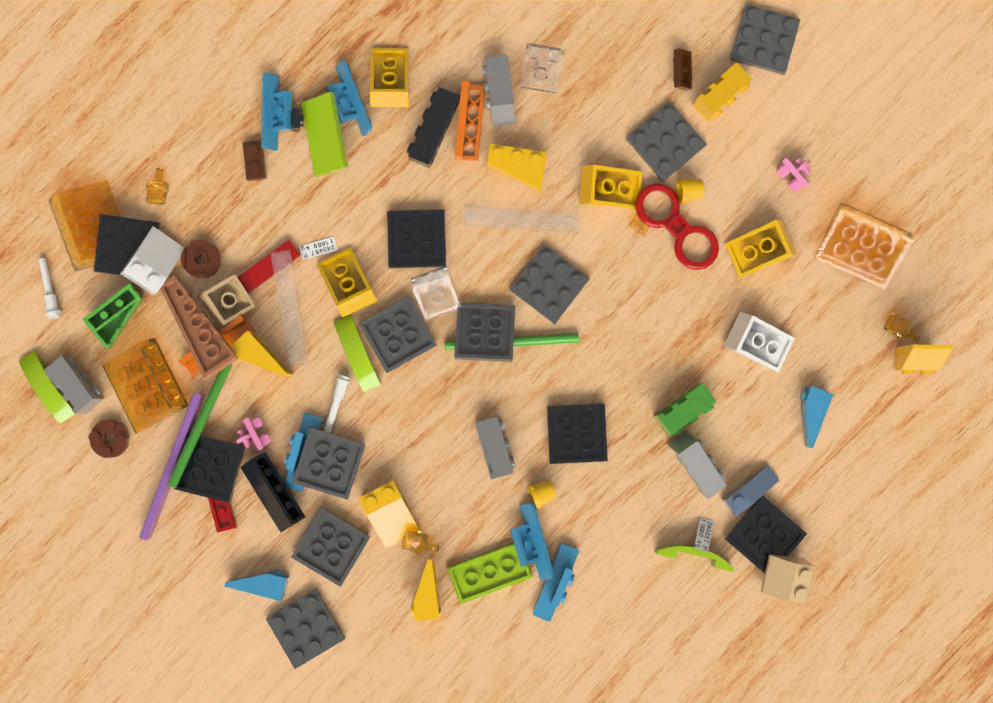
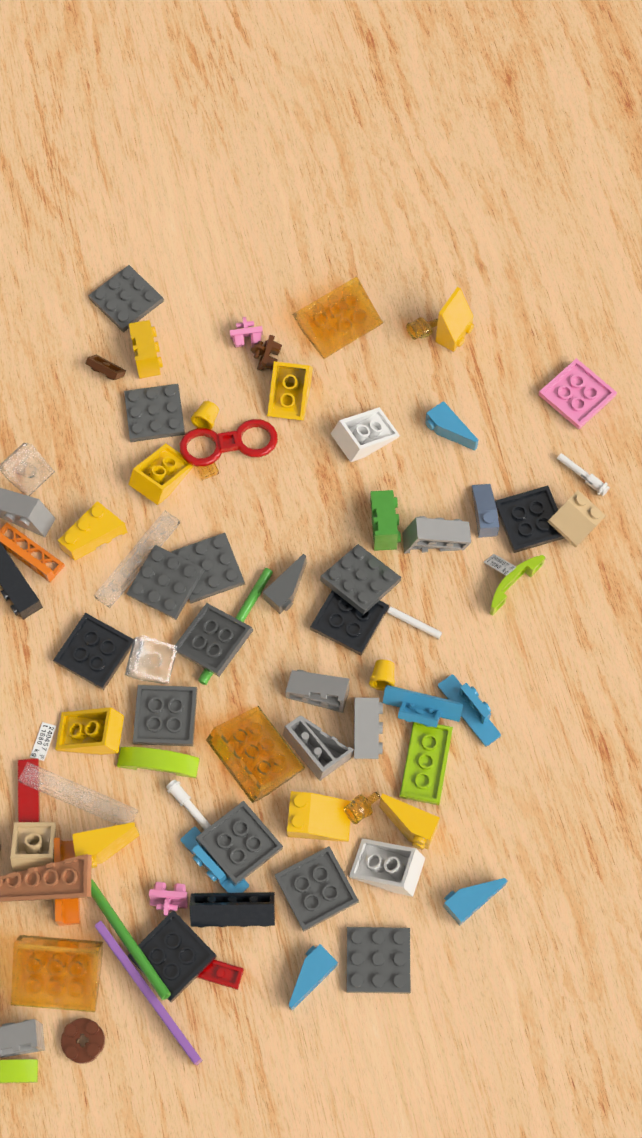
camera: 65 degrees left, 20 degrees down
(382, 593) = (388, 866): none -> white slope
(393, 674) = (470, 899): none -> dark azure slope
(410, 429) = (254, 753): none -> clear yellow slope
(443, 477) = (315, 747): none -> light grey wedge
(488, 507) = (367, 728): none -> light grey wedge
(512, 258) = (165, 582): none -> dark grey plate
(567, 363) = (283, 590): none -> dark grey slope
(607, 490) = (414, 622): none -> white bar
(616, 422) = (360, 579): none -> dark grey plate
(783, 202) = (270, 346): none -> reddish brown hips
(837, 567) = (590, 479): none -> white pin
(919, 508) = (577, 393): none -> bright pink plate

